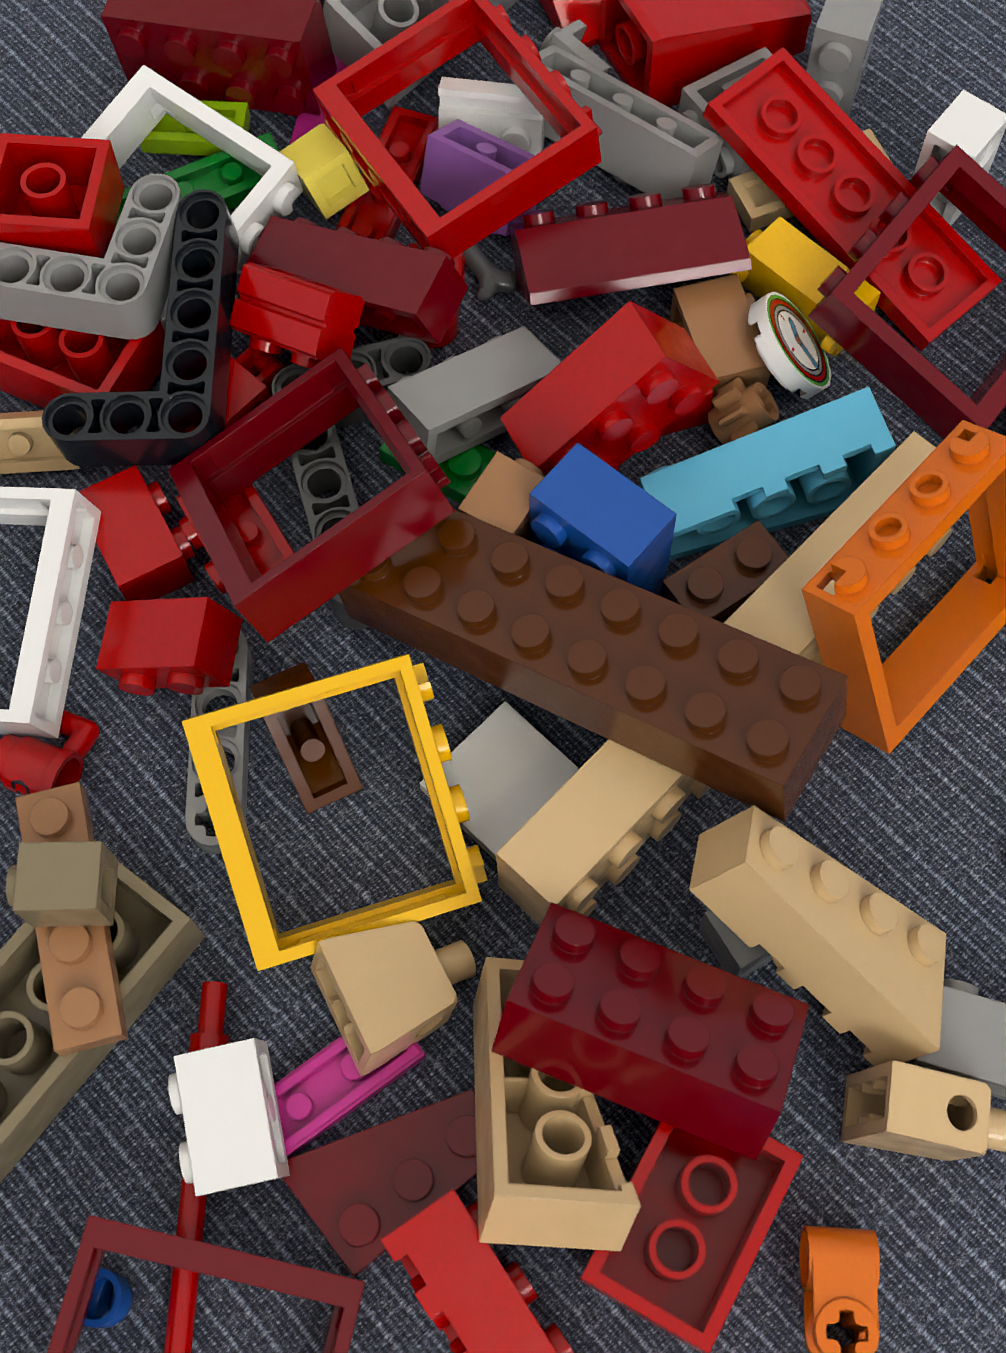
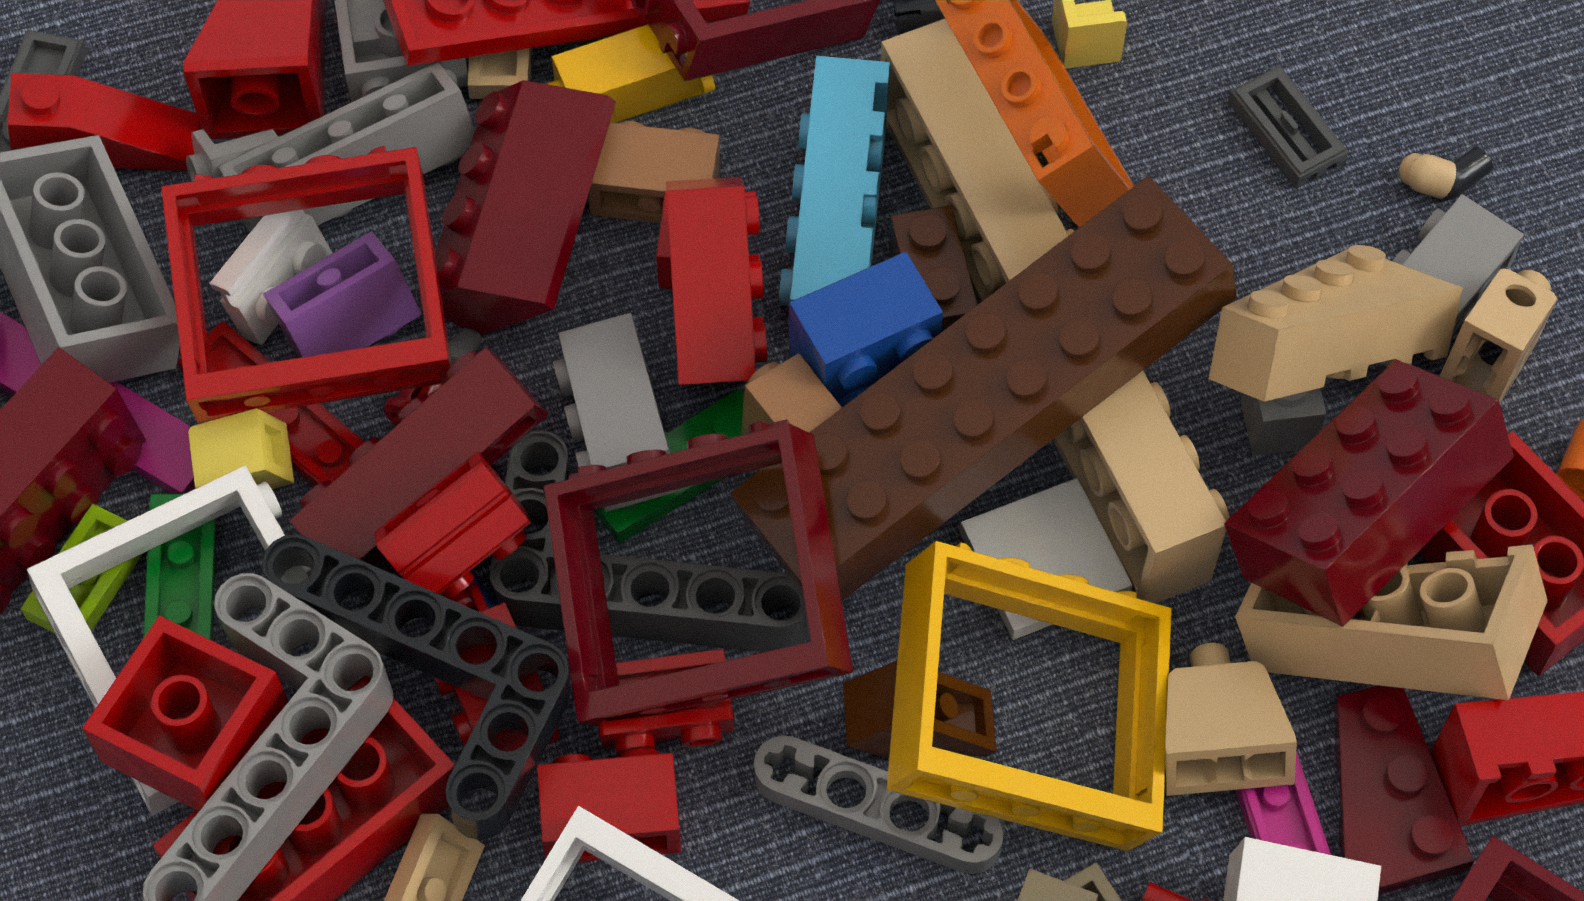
camera: 70 degrees left, 5 degrees down
(169, 645) = (770, 804): red brick -> none
(741, 410) = (761, 176): medium nougat gear -> none
(789, 345) = (701, 112): white tile -> none

